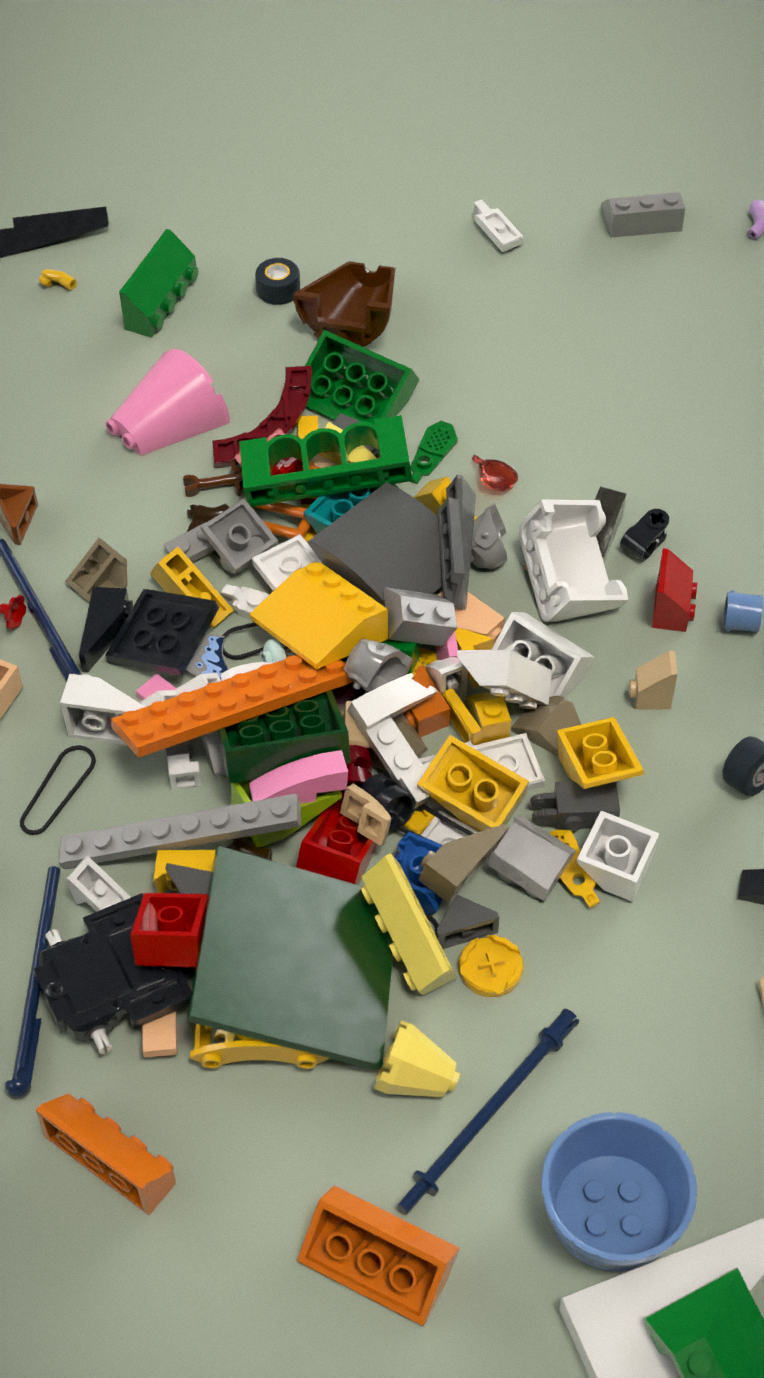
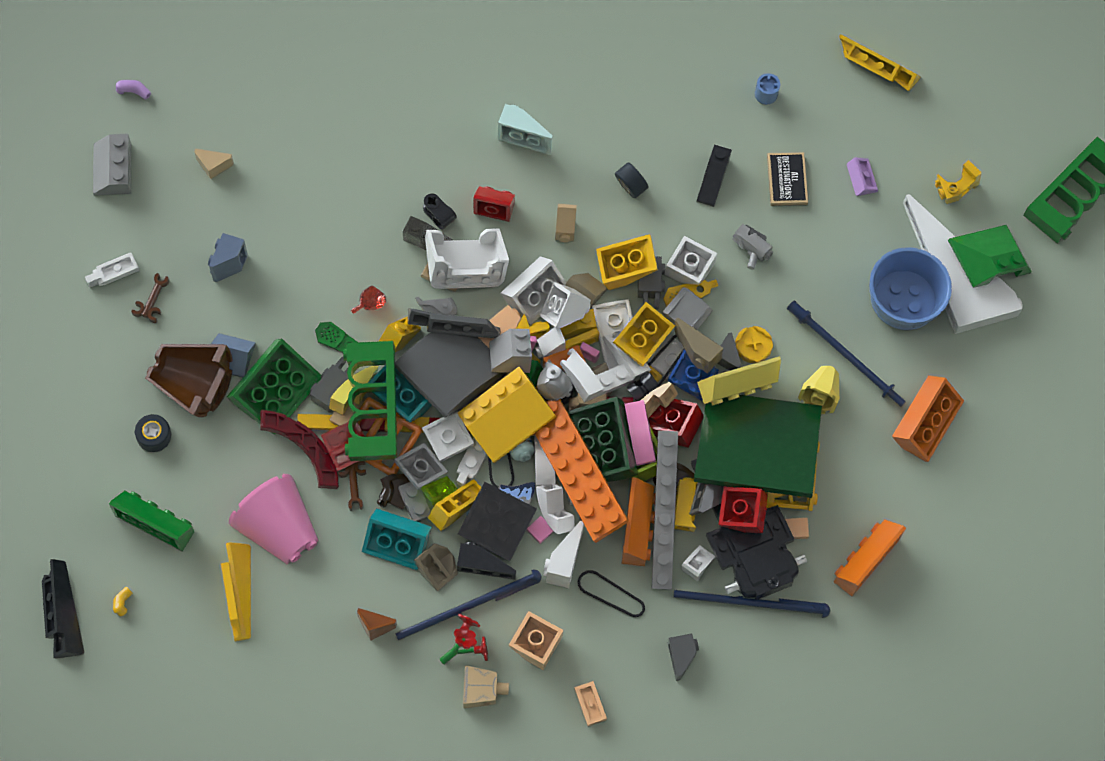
camera: 90 degrees left, 15 degrees up
(70, 377) = (238, 588): none -> yellow wedge
(143, 524) = (395, 538): none -> teal slope
(152, 794) = (638, 529): none -> orange slope
(208, 560) = (438, 490): none -> clear neon green slope
(401, 341) = (240, 350): none -> sand blue slope
(443, 729) = (589, 352): none -> bright pink tile
(450, 262) = (149, 310): none -> reddish brown bar
(526, 316) = (228, 257): none -> sand blue slope
(666, 299) = (213, 162): none -> tan slope
(675, 954) = (754, 243): none -> light grey piece
(742, 612) = (510, 164): medium blue piece -> none

